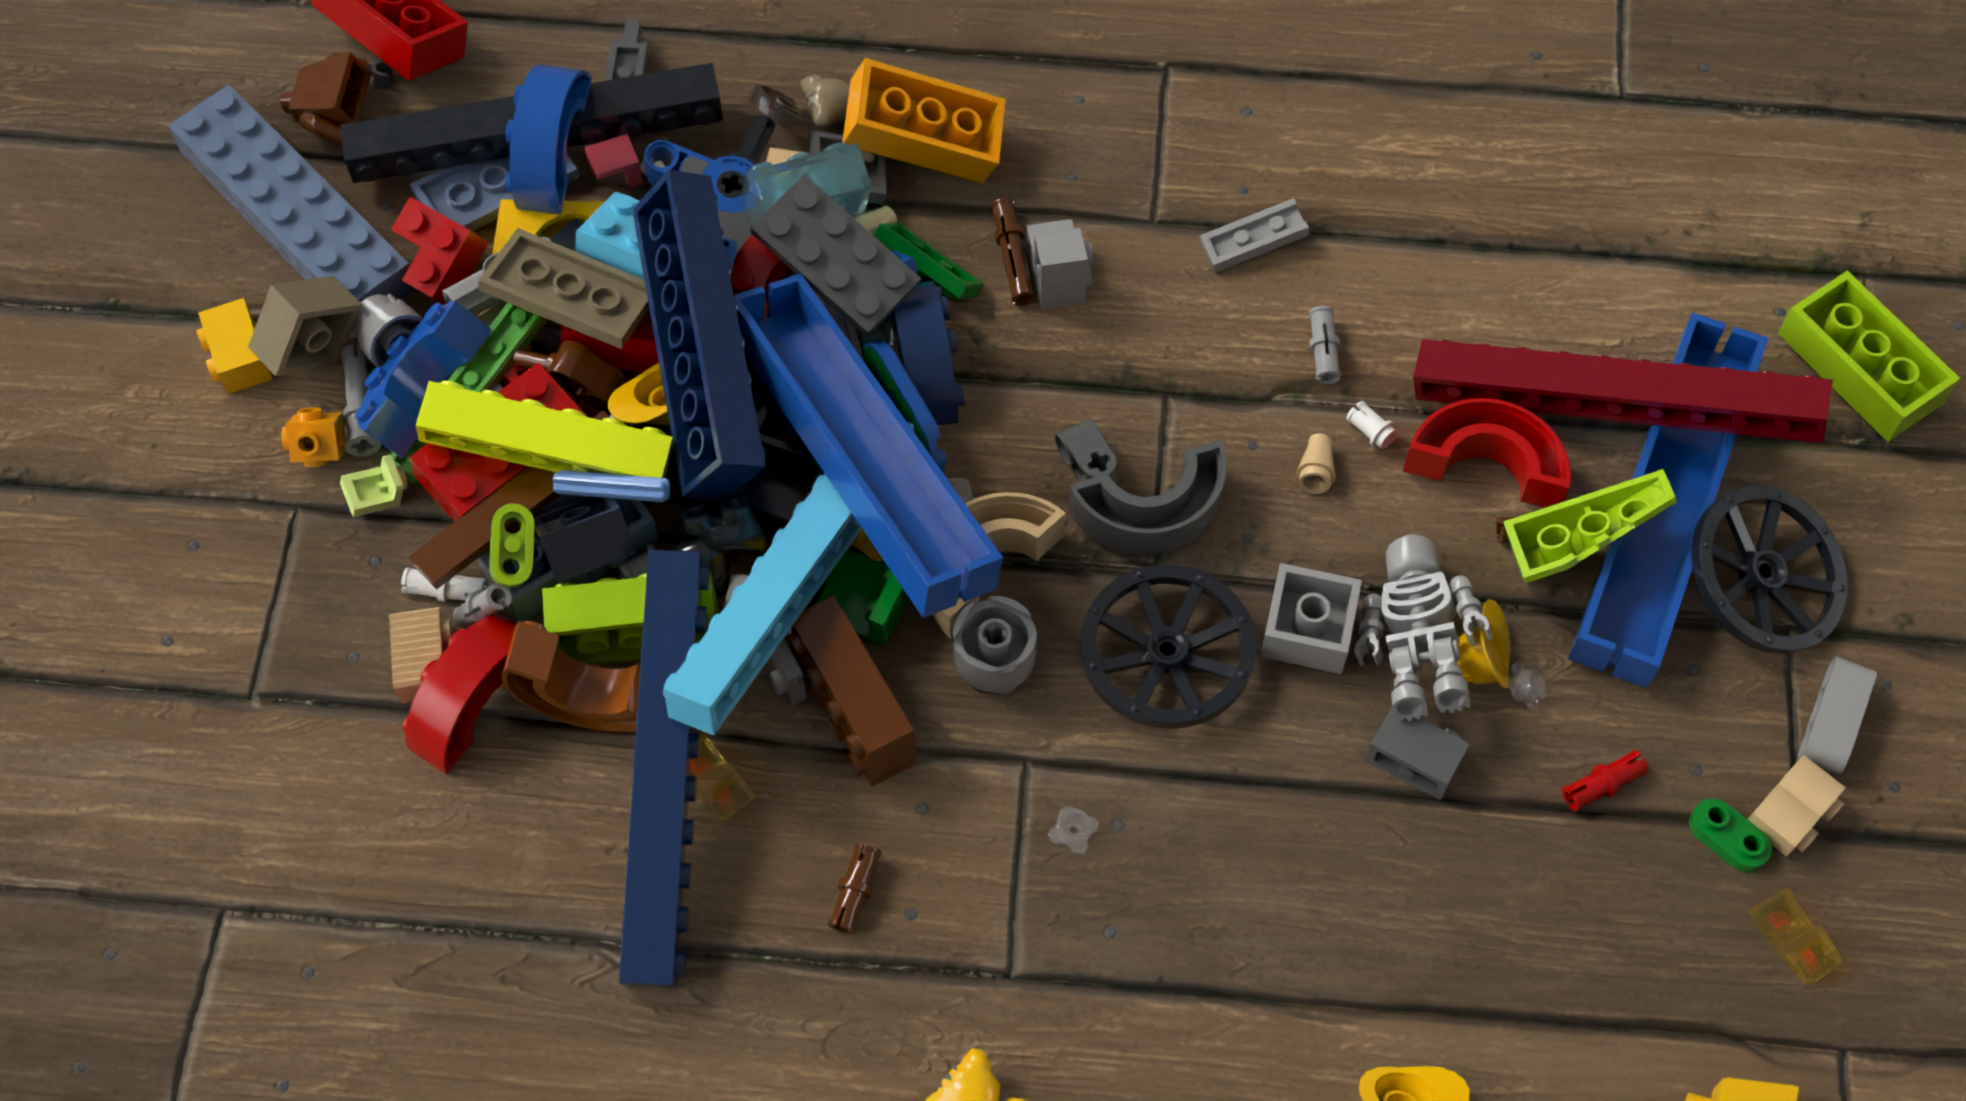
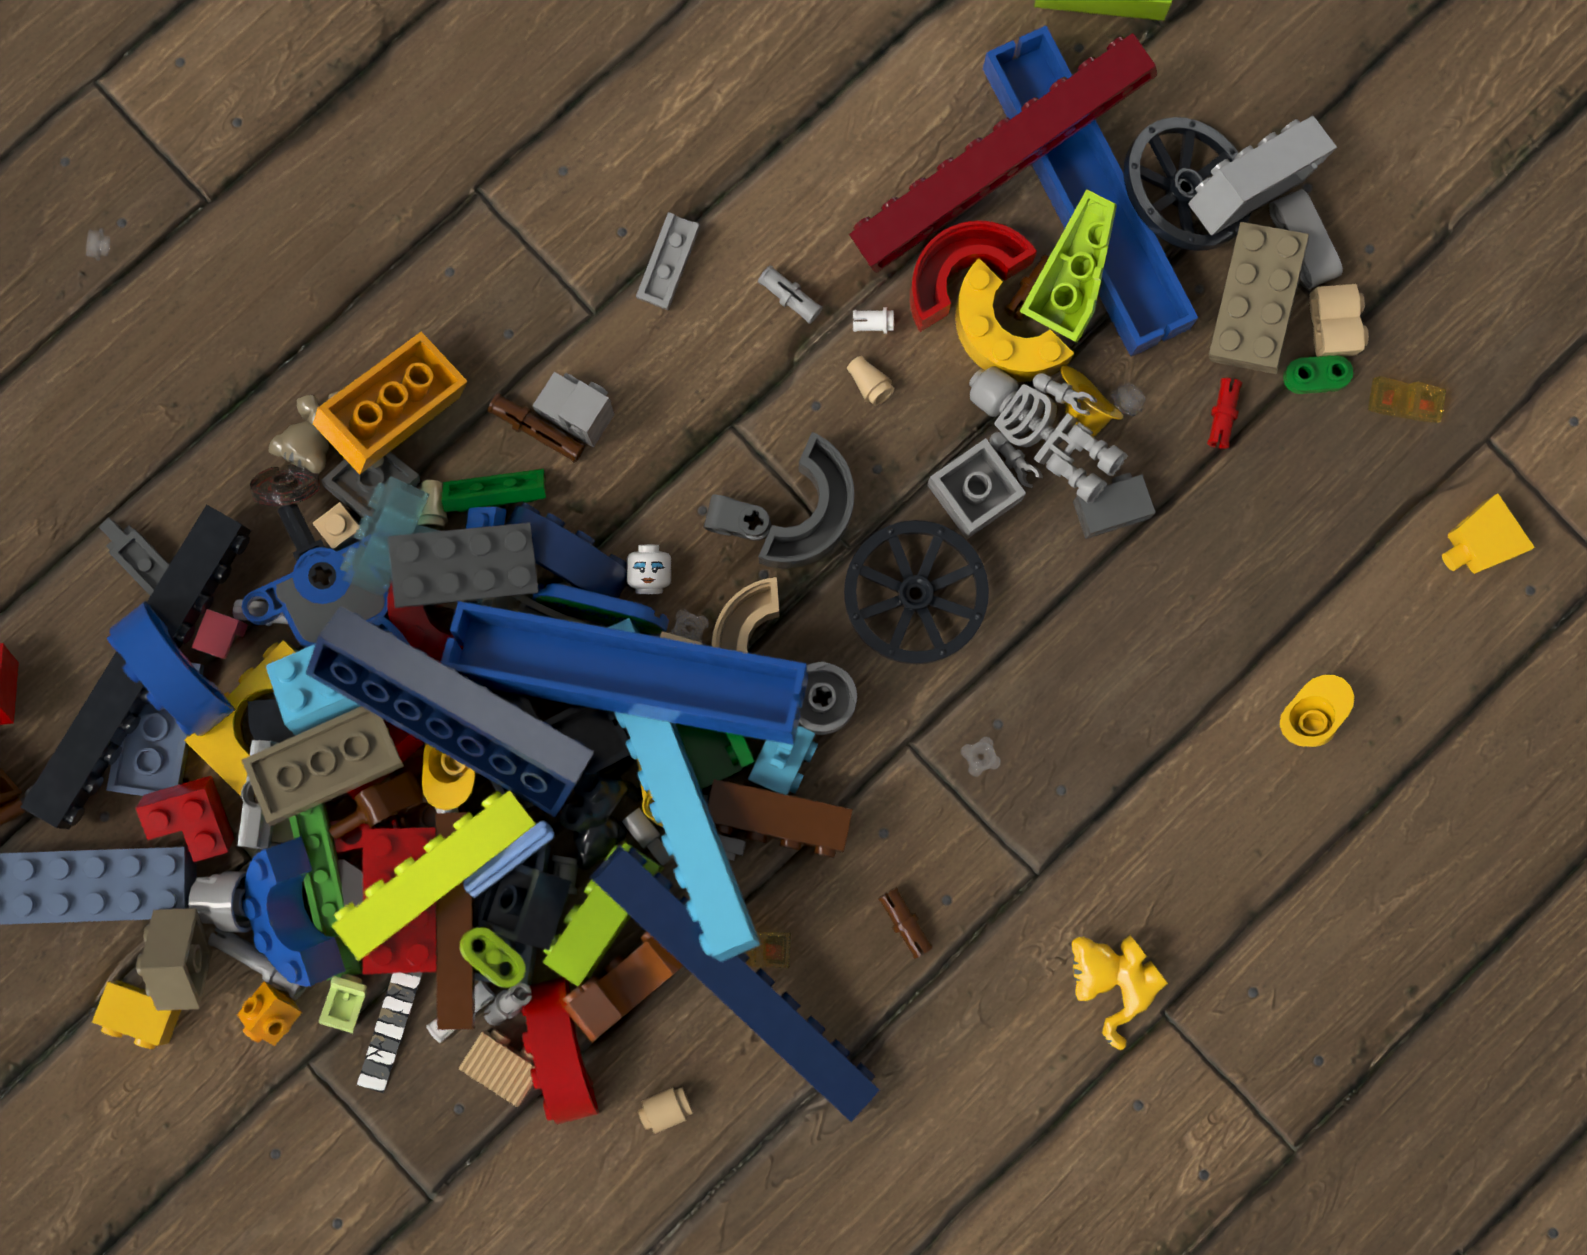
camera: 50 degrees left, 20 degrees up
(380, 543) = (389, 1030): none -> sticker
(495, 819) = (665, 1110): none -> tan brick
(914, 657) = (780, 763): none -> medium azure brick
(975, 423) = (648, 569): none -> white head
(1465, 493) = (991, 344): none -> yellow brick
(1736, 709) = (1258, 297): none -> dark tan brick
(1844, 611) = (1261, 174): none -> light grey piece

